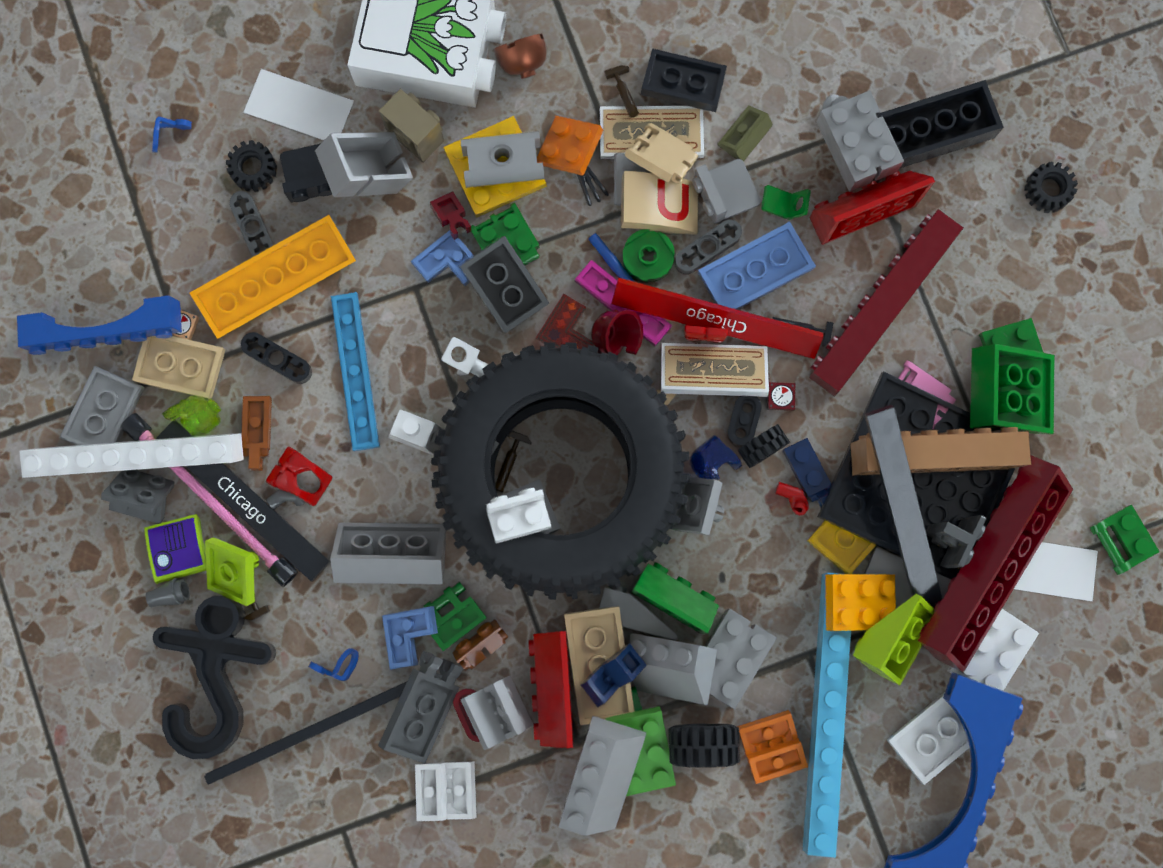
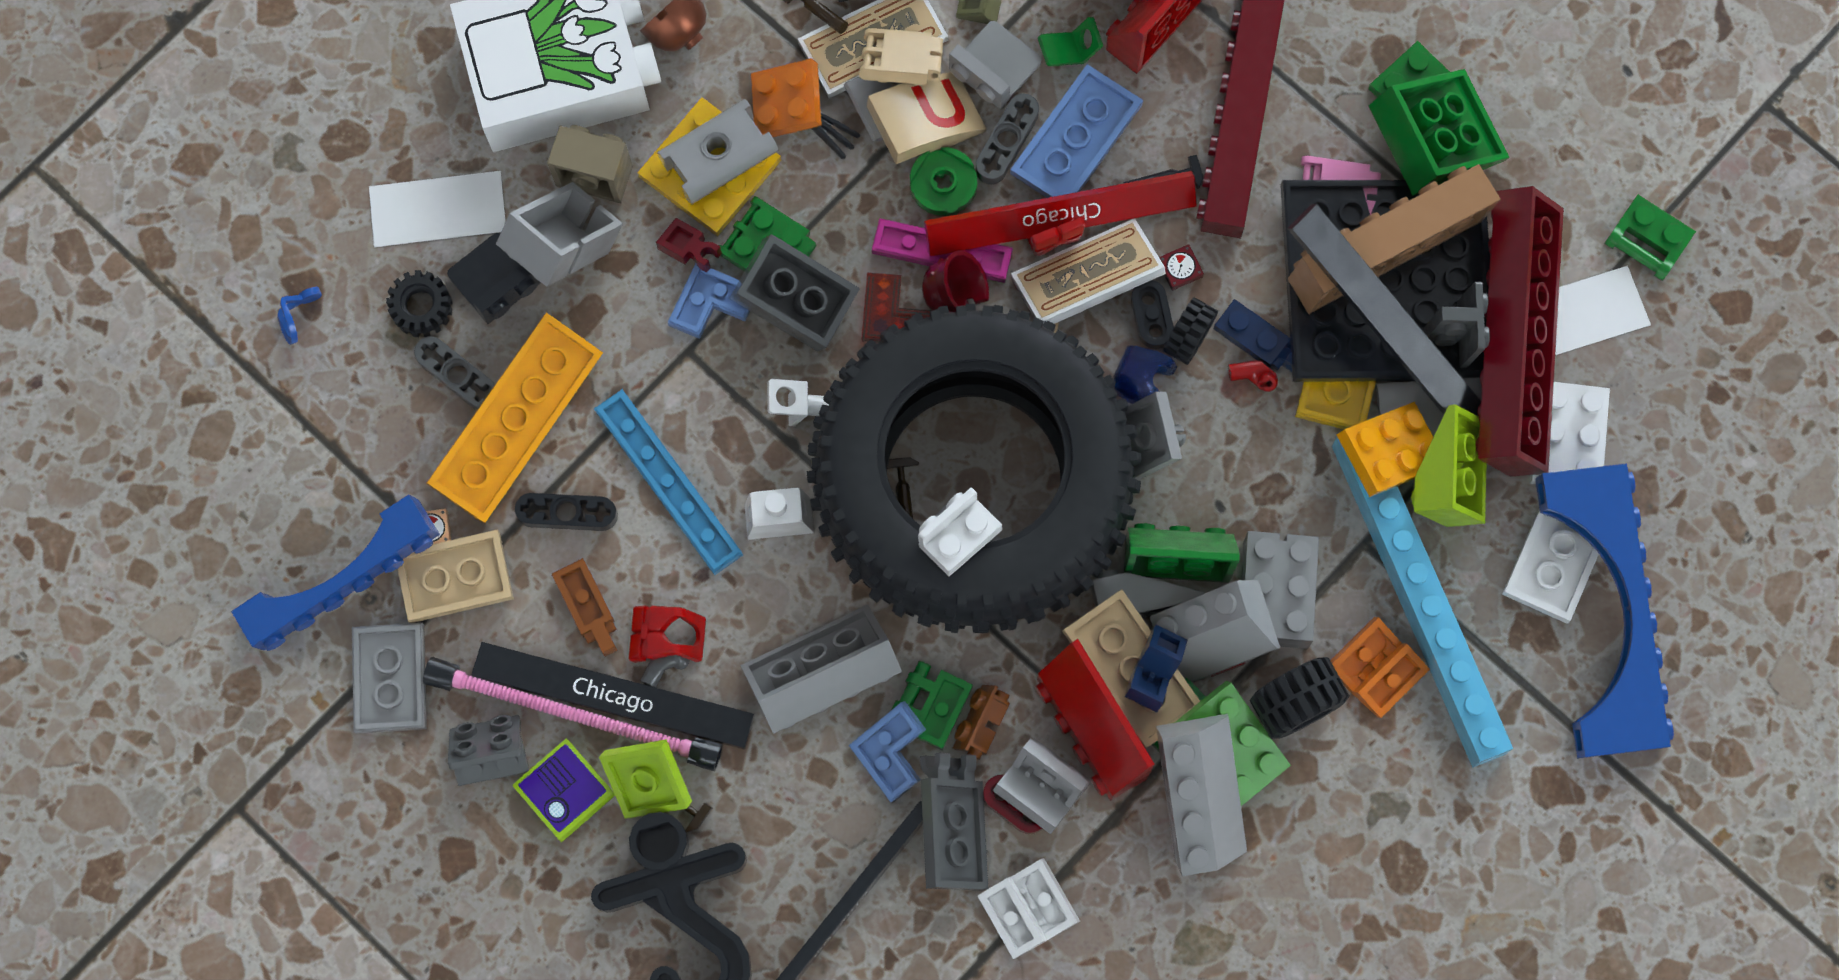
camera: 25 degrees left, 5 degrees down
(131, 455) = (456, 704): white brick -> none
(170, 593) = (584, 845): dark grey cone -> none
(195, 414) = (508, 619): clear neon green head -> none
(354, 659) = (810, 843): blue piece -> none
(609, 257) = (897, 205): blue piece -> none

